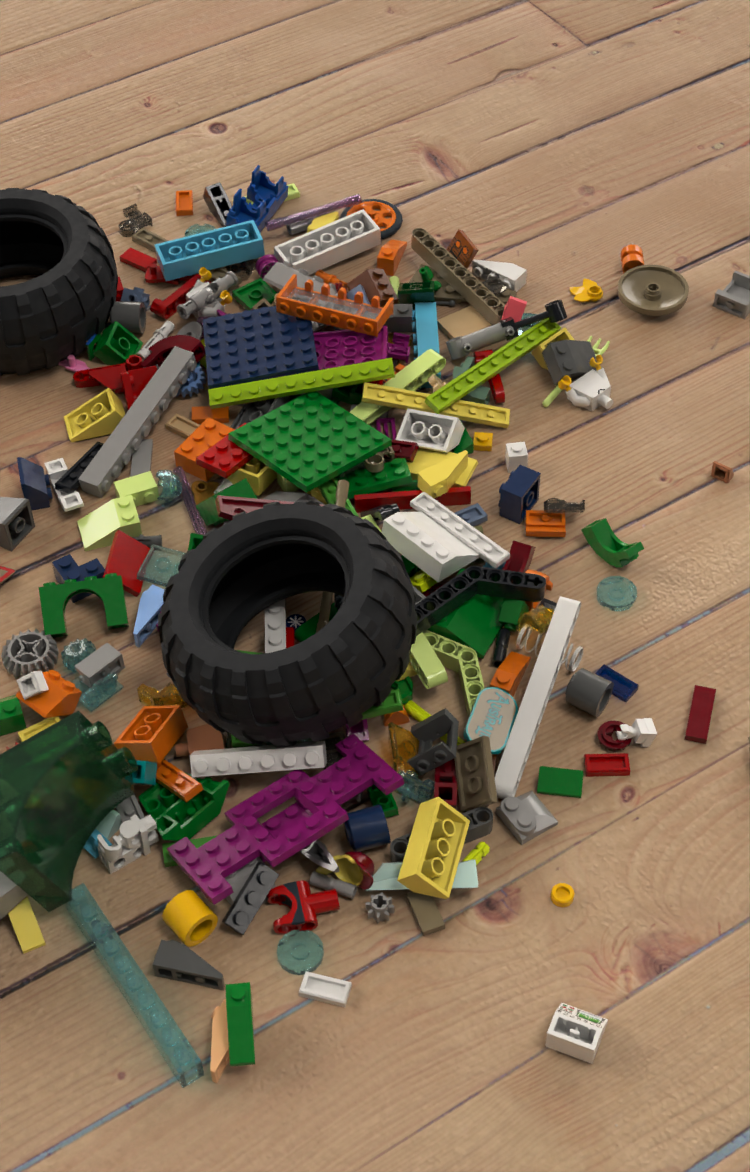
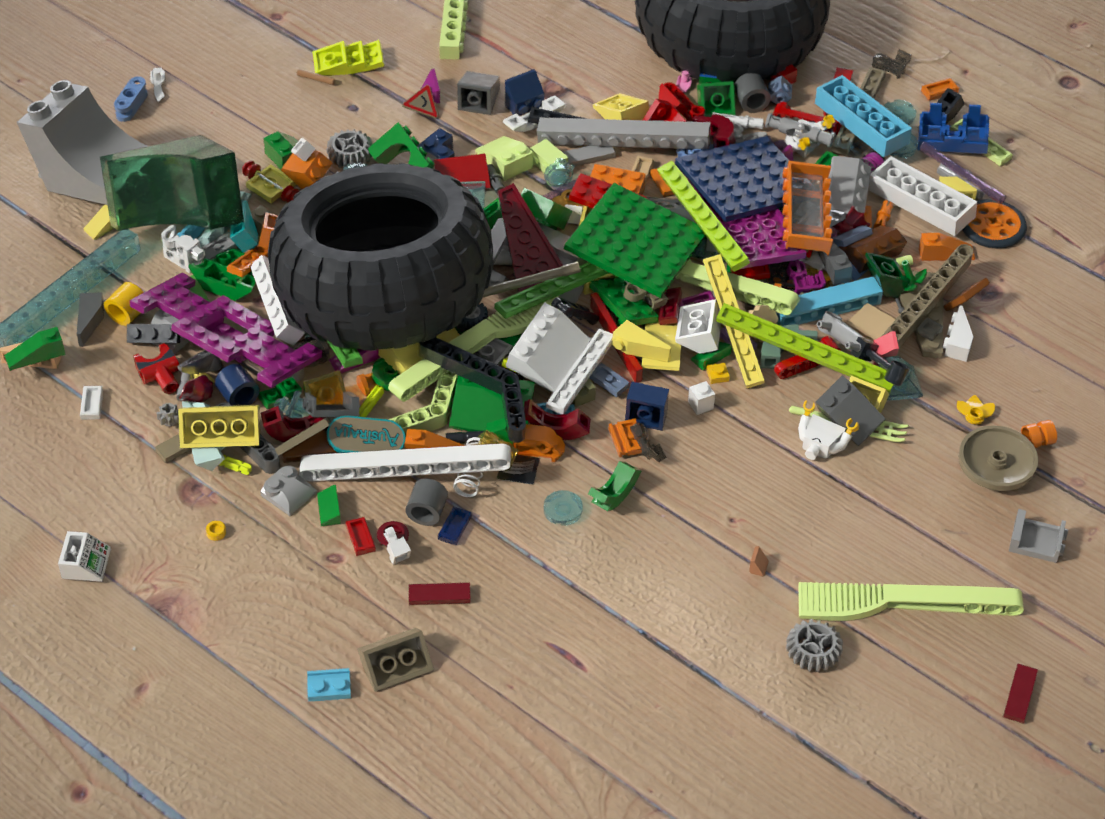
camera: 70 degrees right, 0 degrees up
(300, 952) = (121, 380): clear light blue tile -> none

